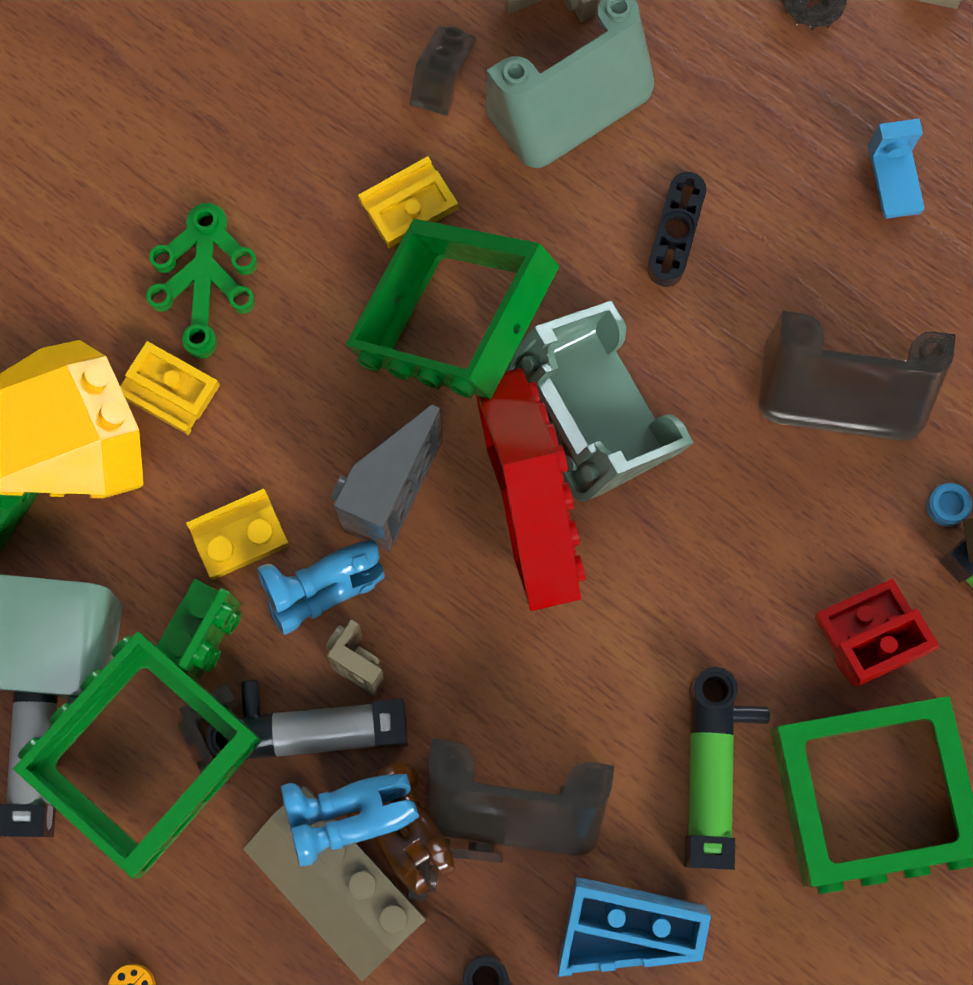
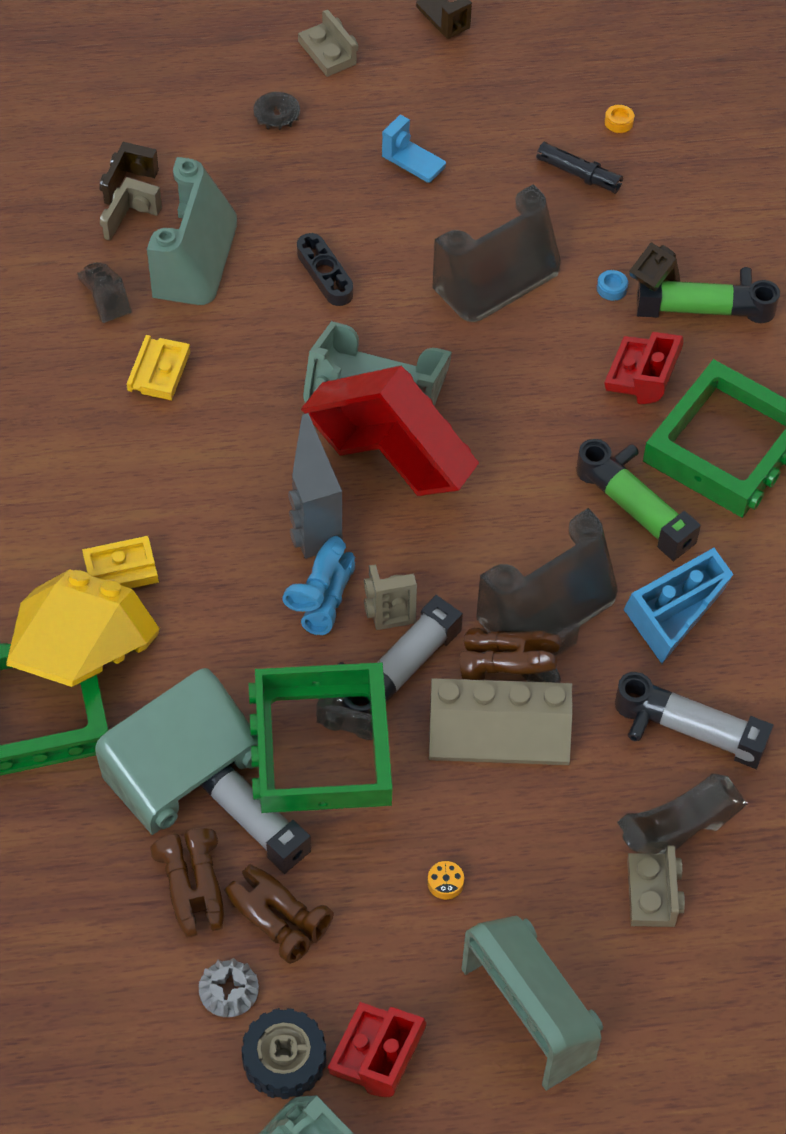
camera: 45 degrees left, 20 degrees down
(200, 627) = (279, 651): green bracket -> none
(202, 271) = (77, 493): green plant -> none
(237, 534) = (245, 607): yellow plate -> none
(361, 796) = (472, 661): dark azure piece -> none
(407, 278) = (199, 369): green piece -> none

